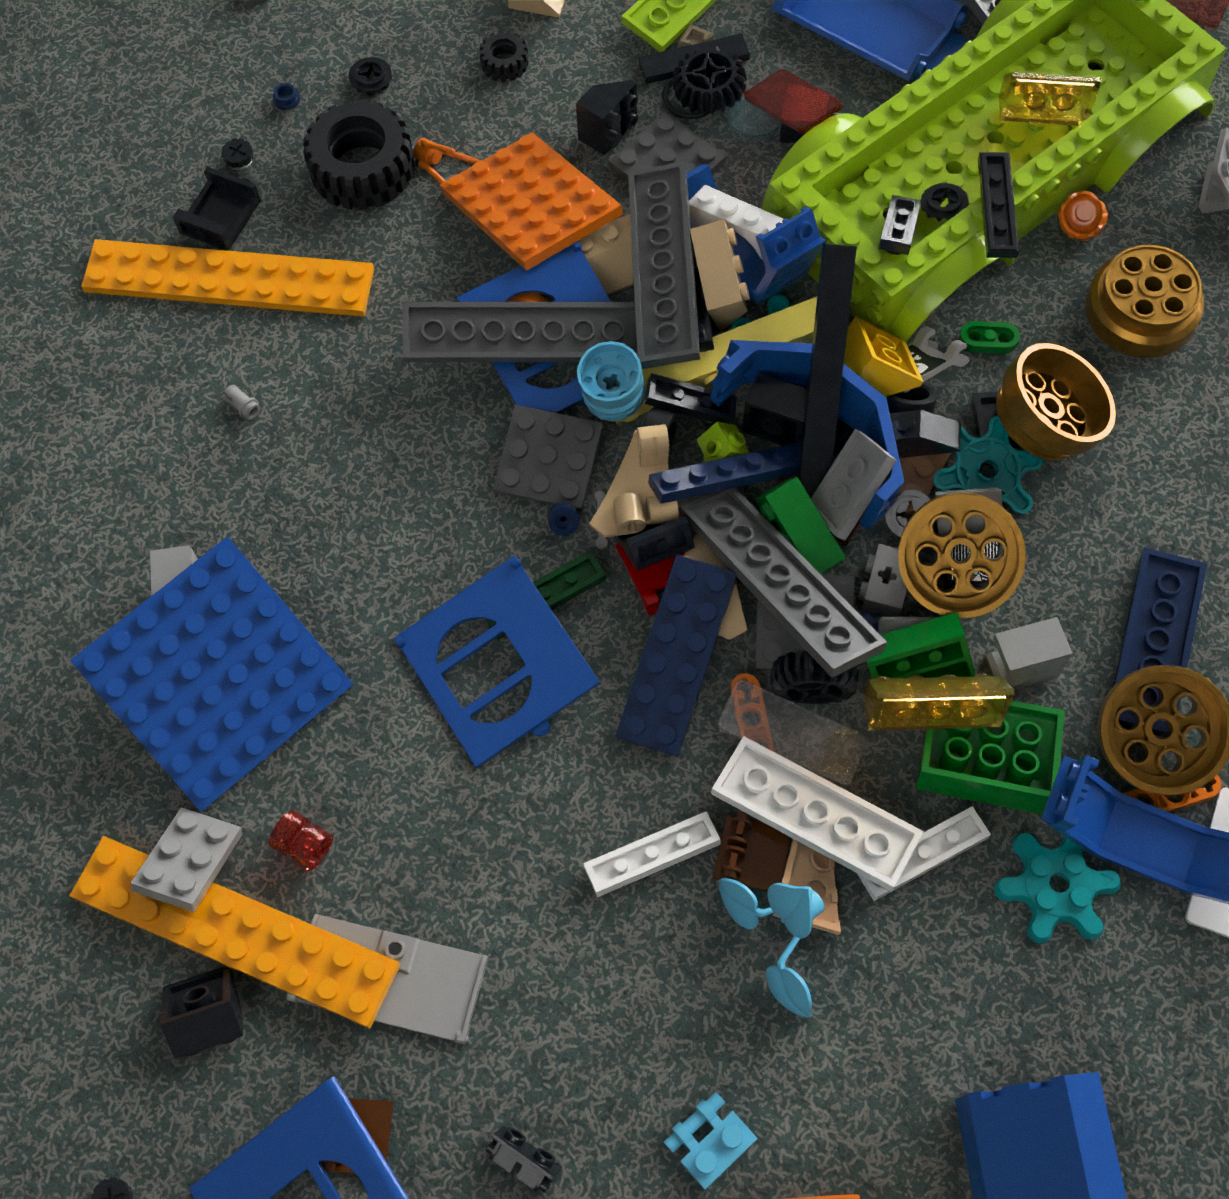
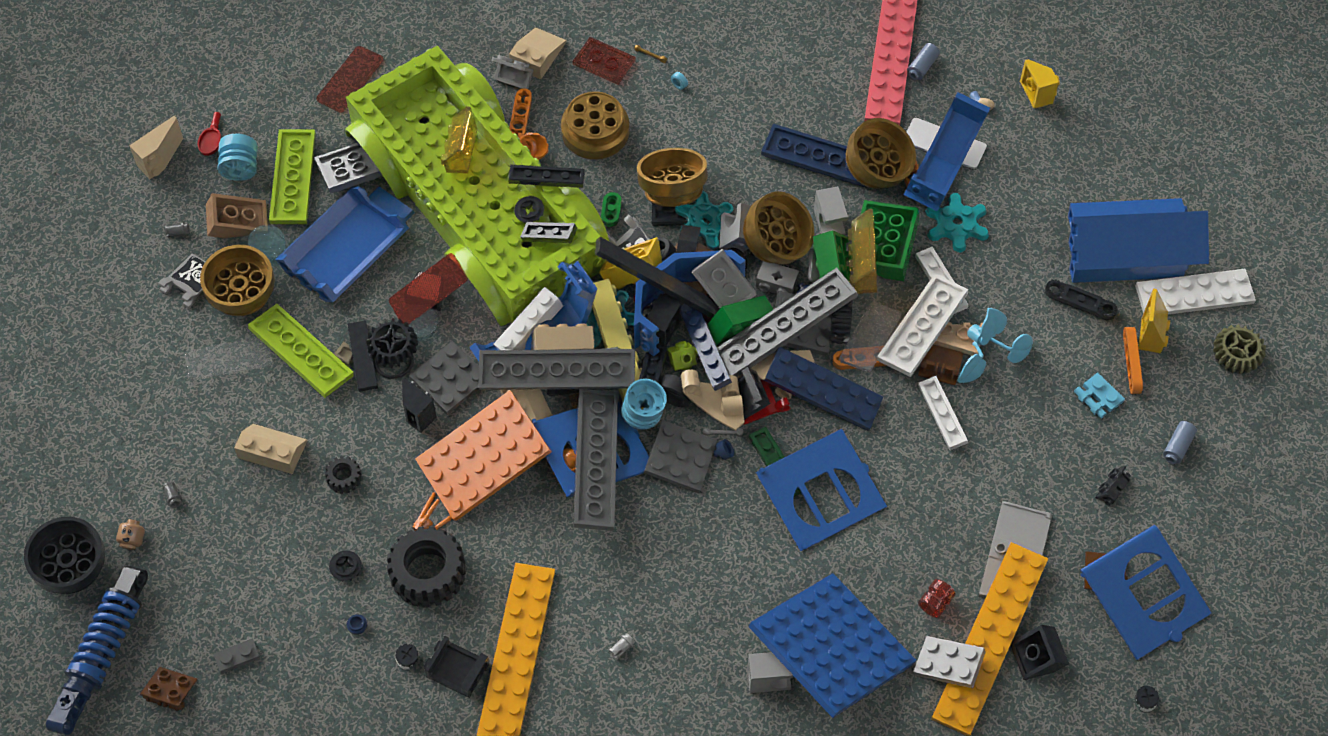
camera: 90 degrees left, 5 degrees down
(914, 1113) = (1081, 299): none -> black plate
(1140, 201) = (517, 118): none -> orange beam

